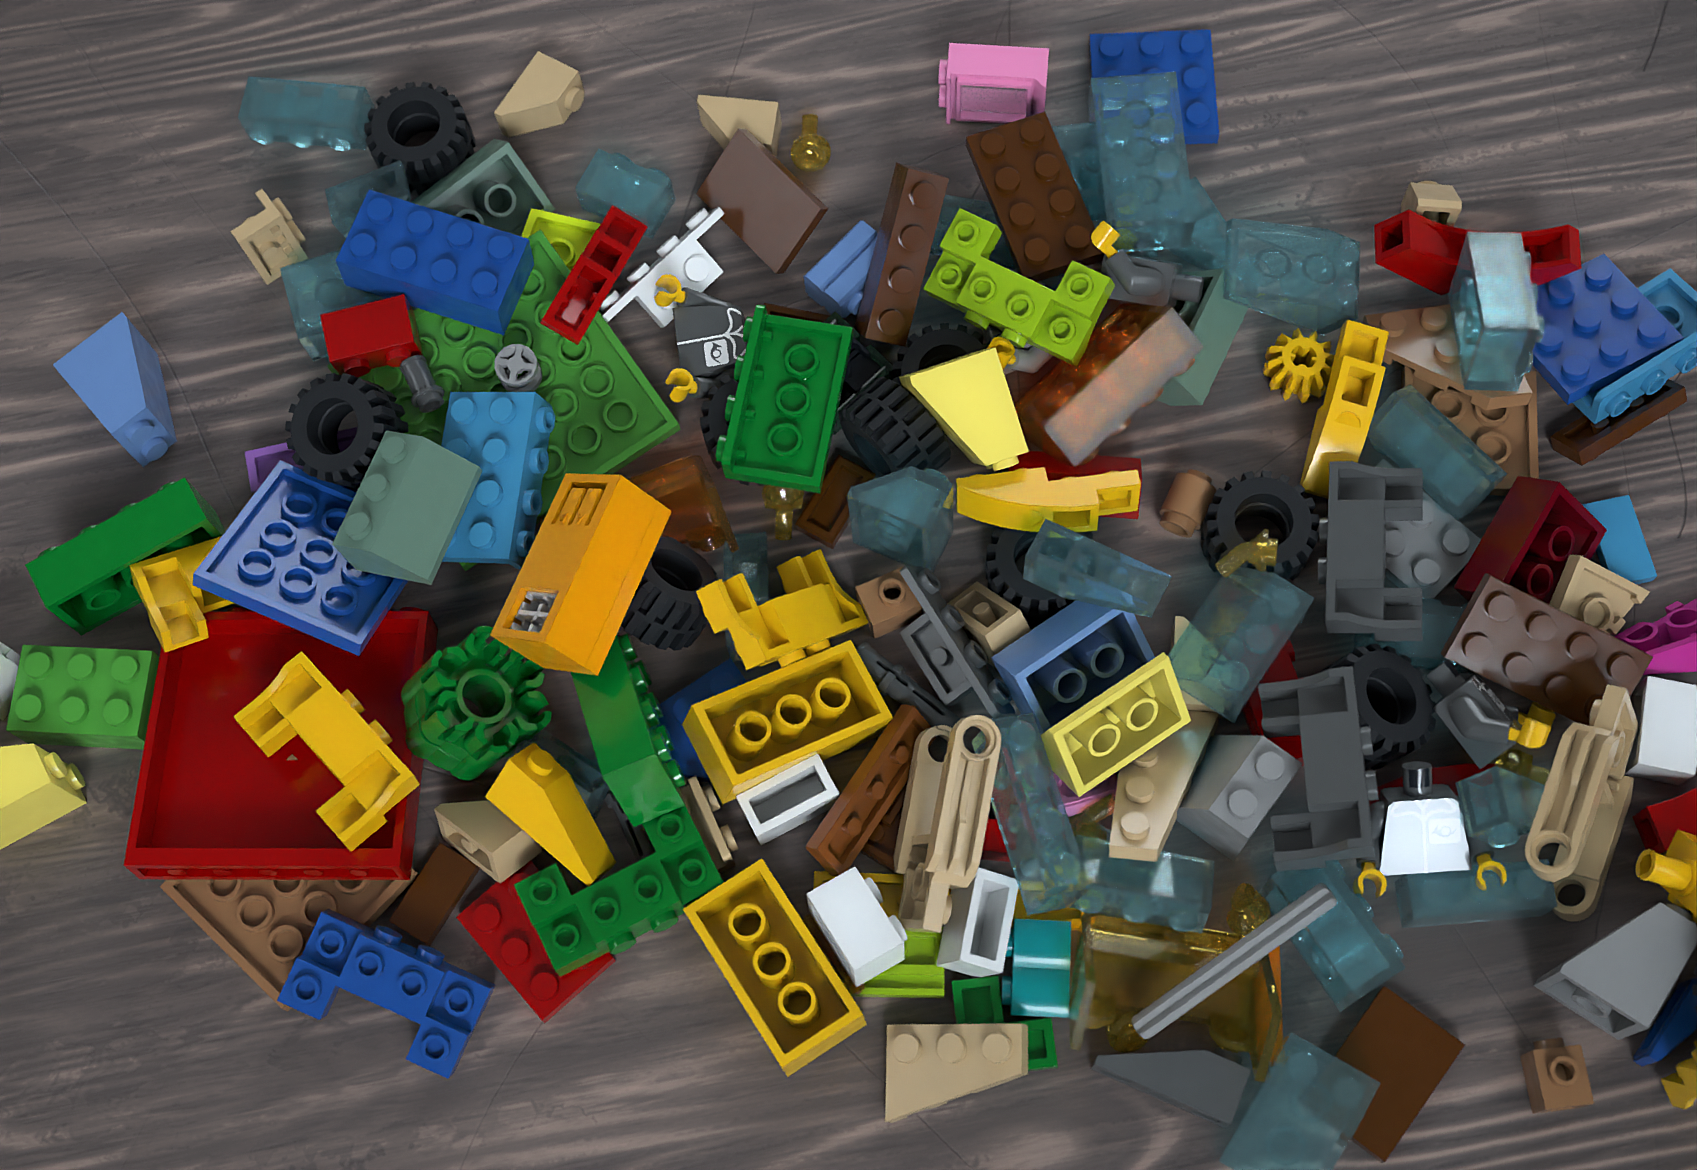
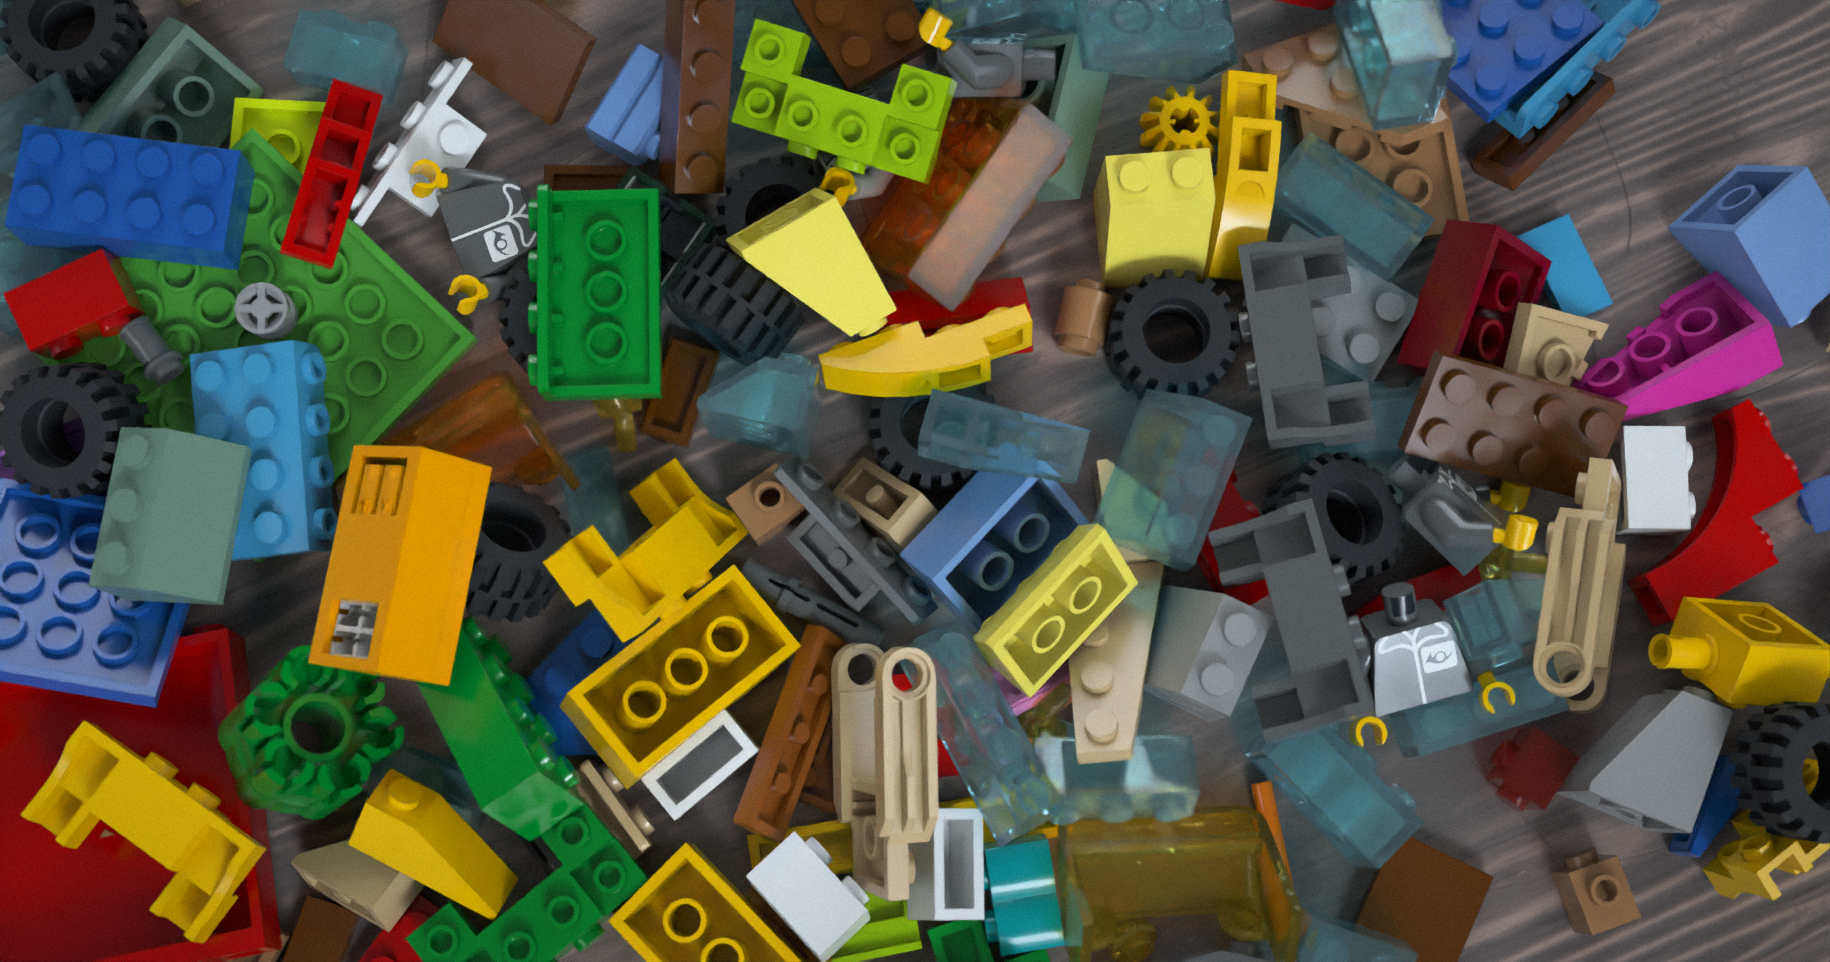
camera: 25 degrees left, 10 degrees up
(1234, 960) = (1237, 851): light grey axle -> none
(1247, 909) = (1237, 781): clear yellow plate -> none
(1259, 551) = (1180, 372): clear yellow plate -> none
(1262, 423) = (1153, 215): none -> light yellow slope
(1513, 956) = (1529, 769): none -> clear red brick

